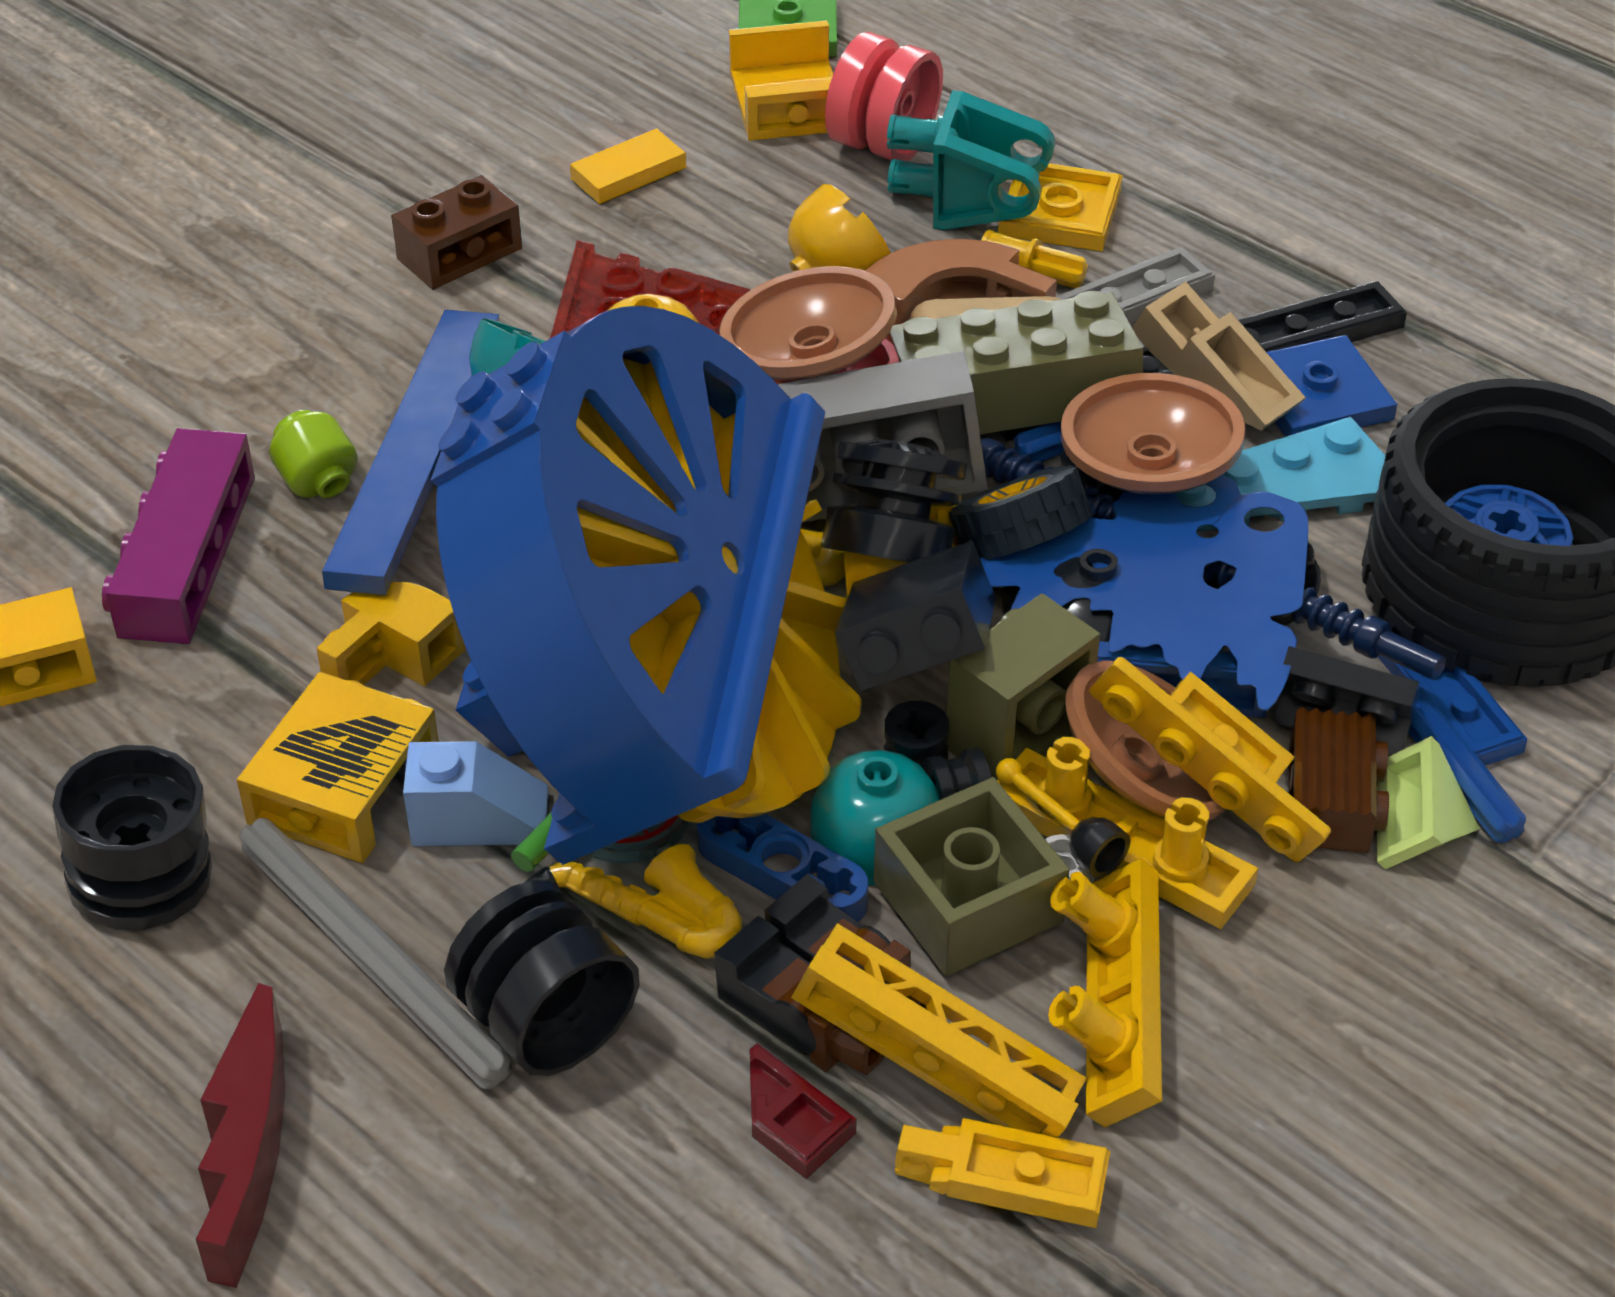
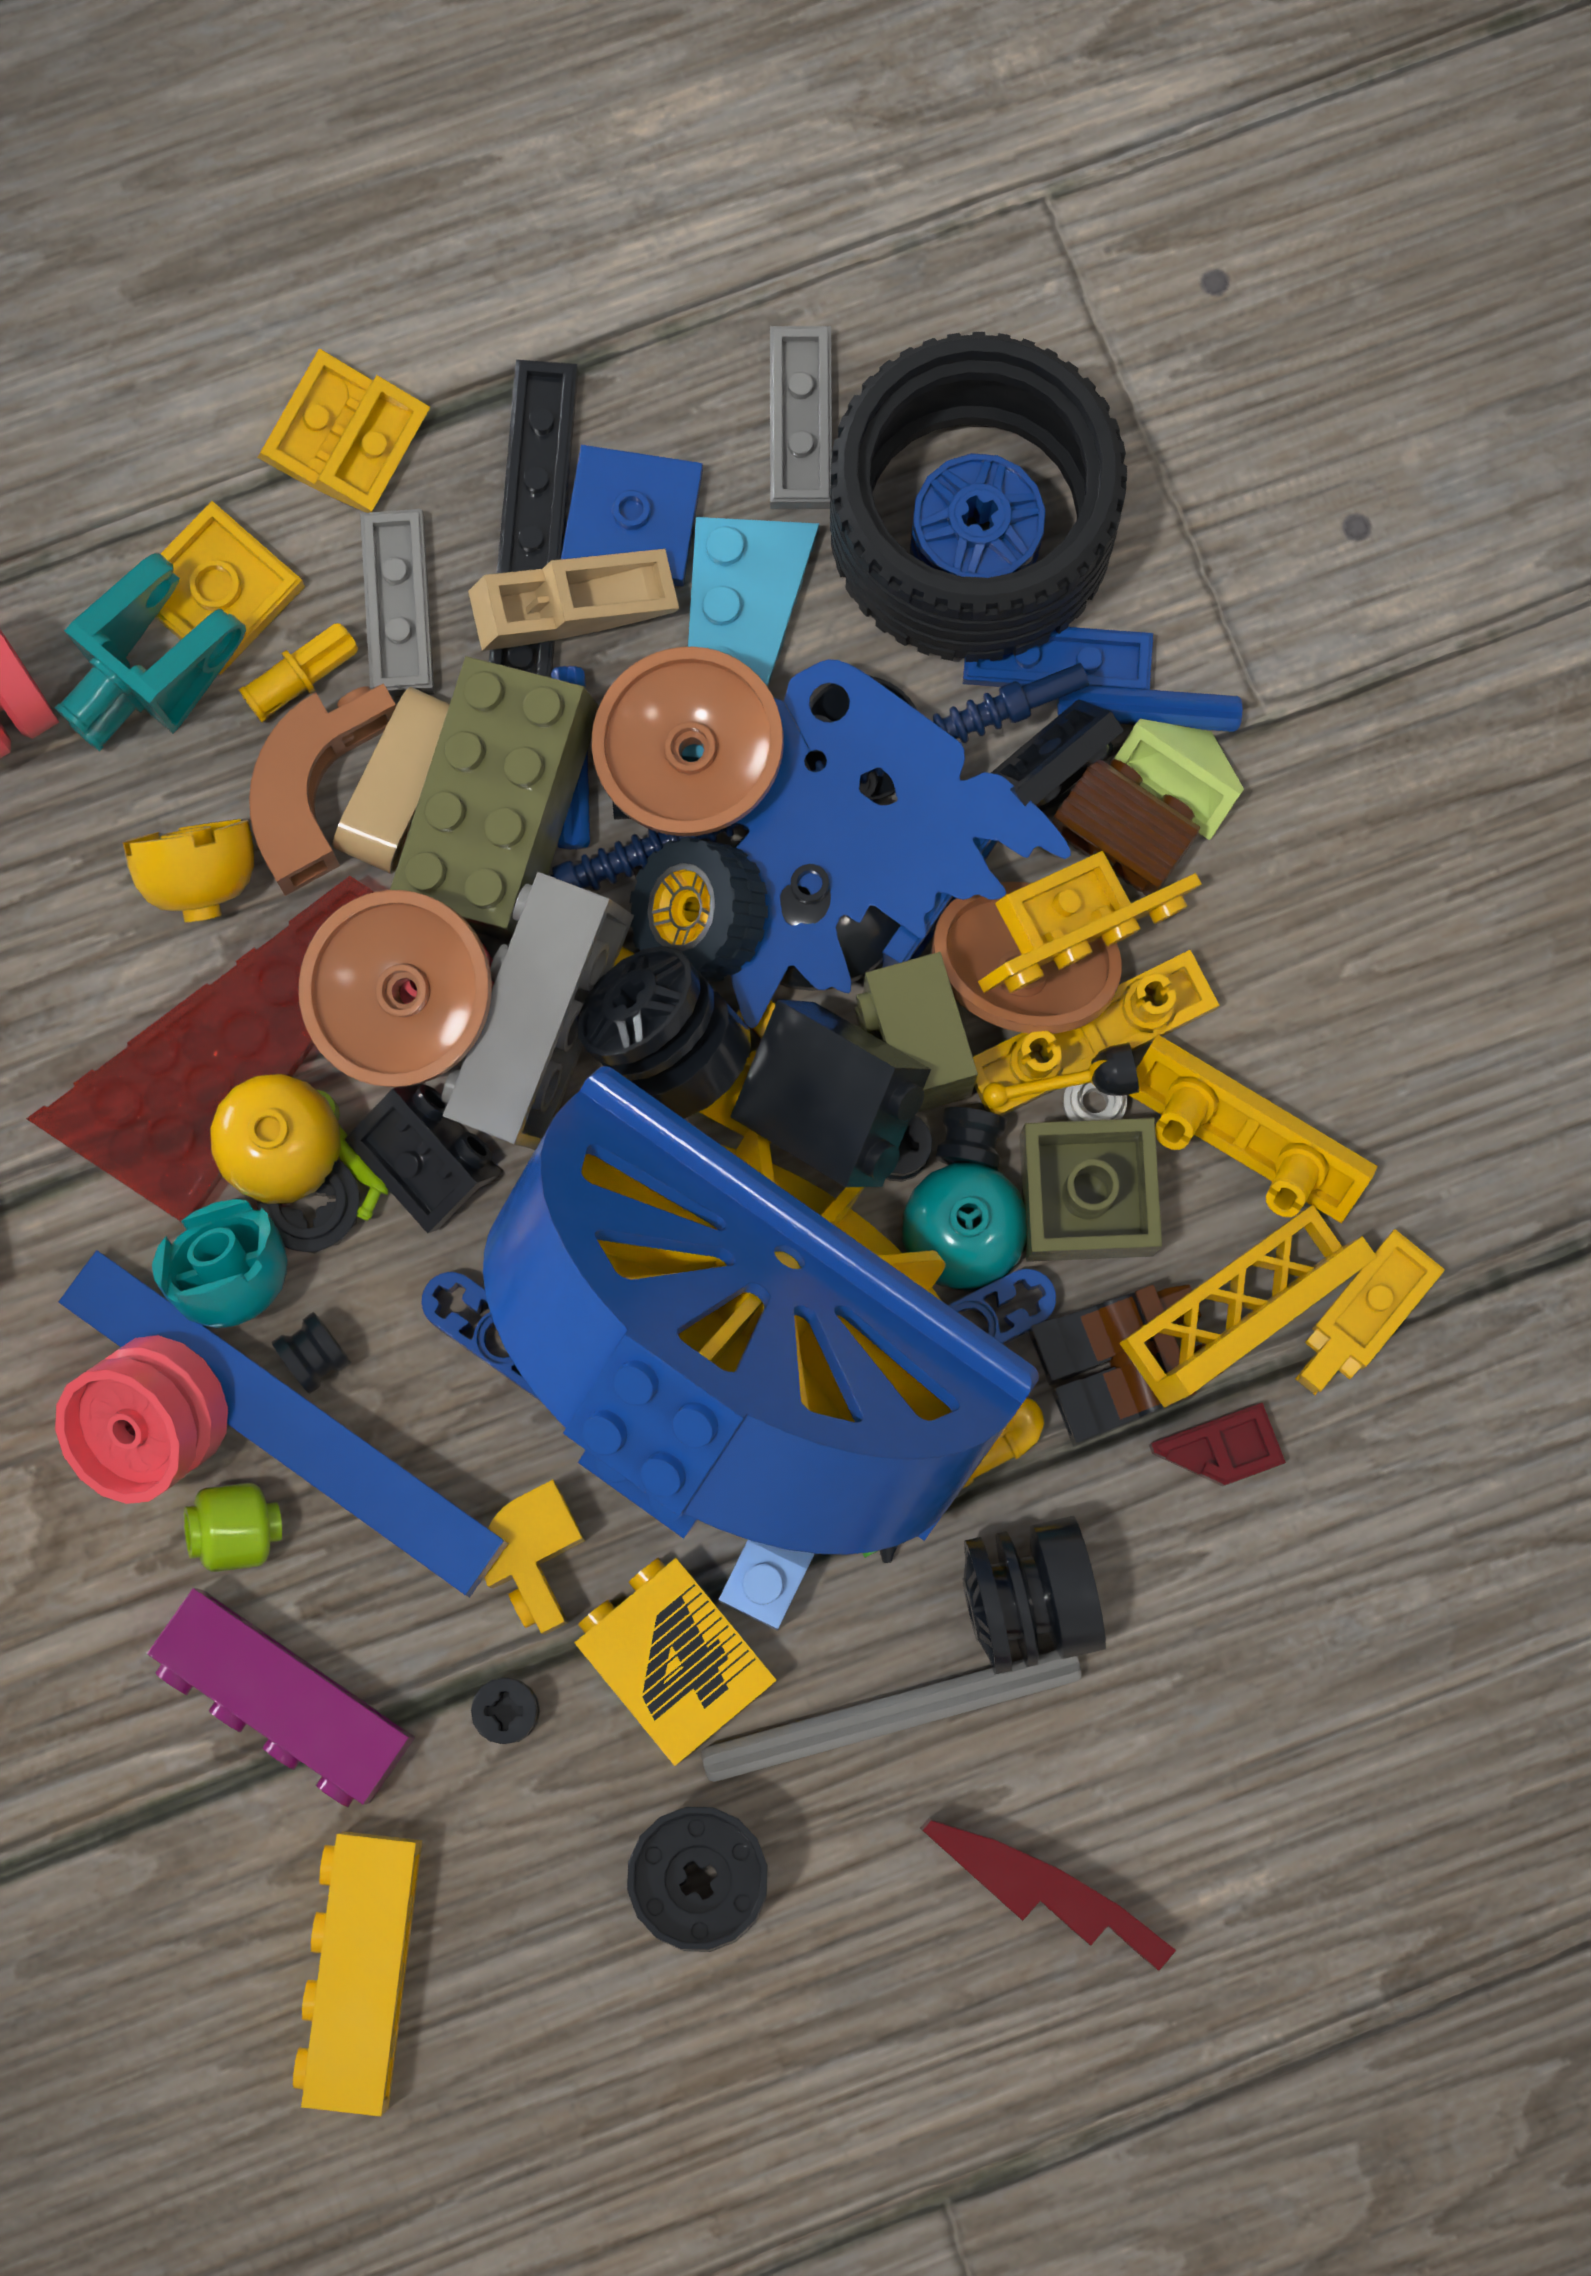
camera: 65 degrees left, 35 degrees up
(238, 675) = (516, 1711): none -> black wheel
(370, 352) = (141, 1419): none -> coral wheel
(1236, 219) = (343, 432): none -> yellow slope

